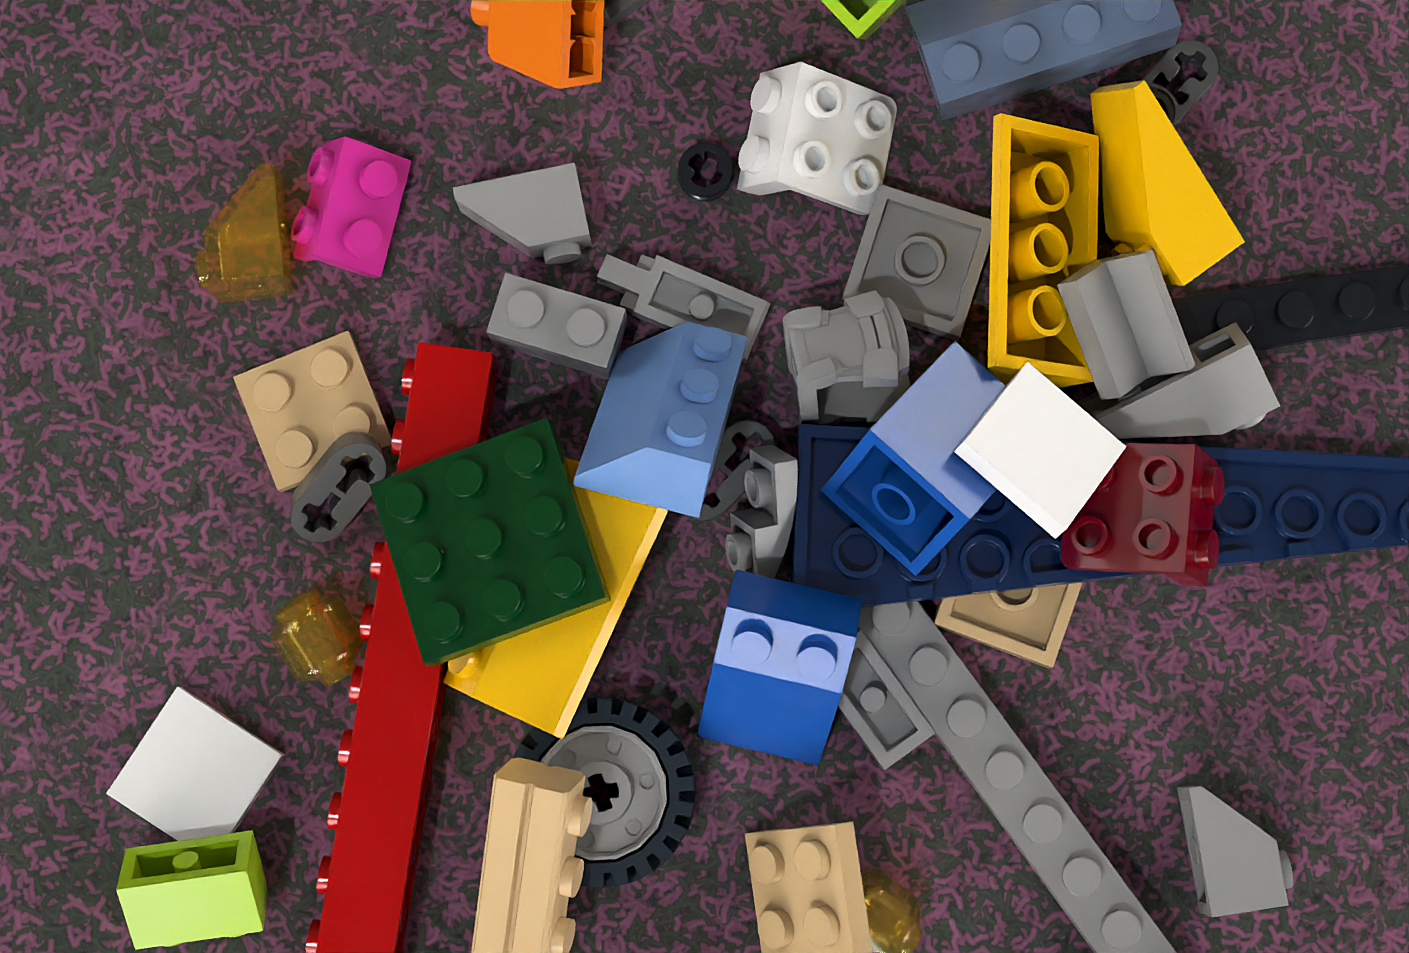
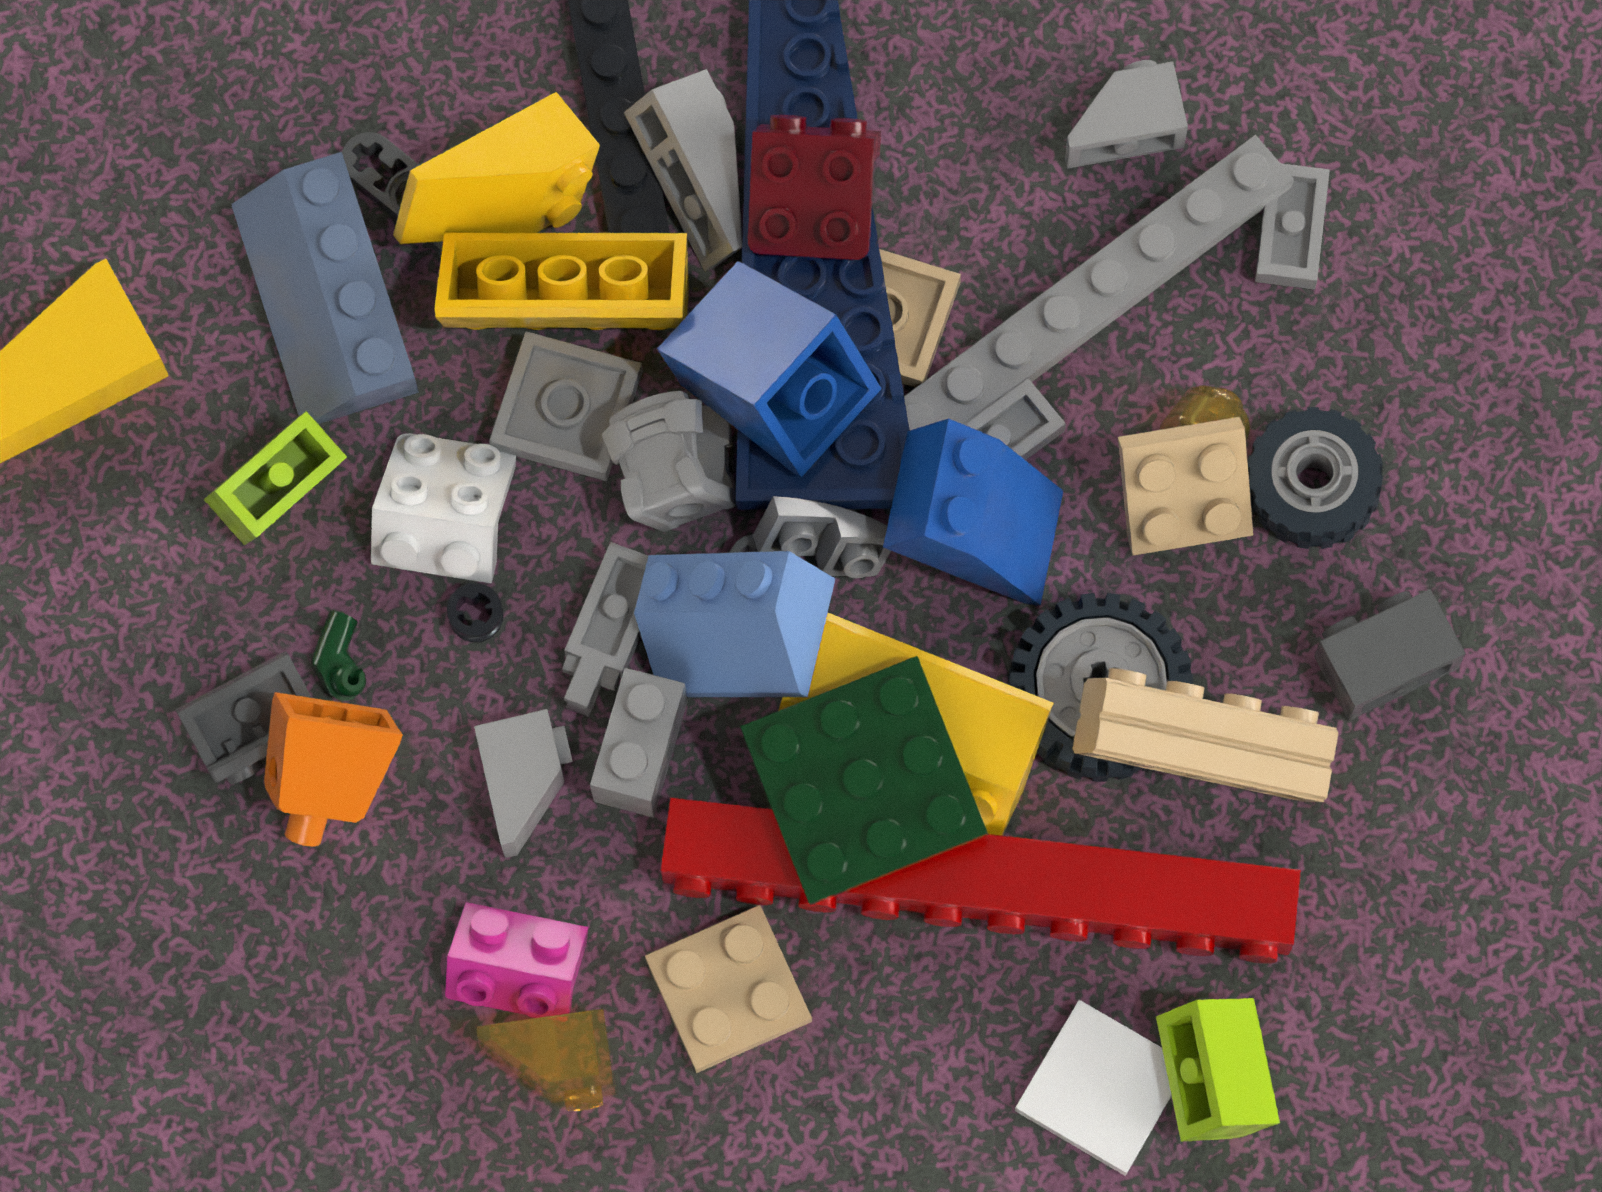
camera: 90 degrees left, 10 degrees down
(317, 637) = (960, 967): clear yellow head -> none
(327, 477) = (807, 954): dark grey beam -> none
(661, 36) = (332, 661): none -> dark green arm
(1040, 450) = (763, 262): white tile -> none
(1125, 322) = (630, 202): light grey panel -> none

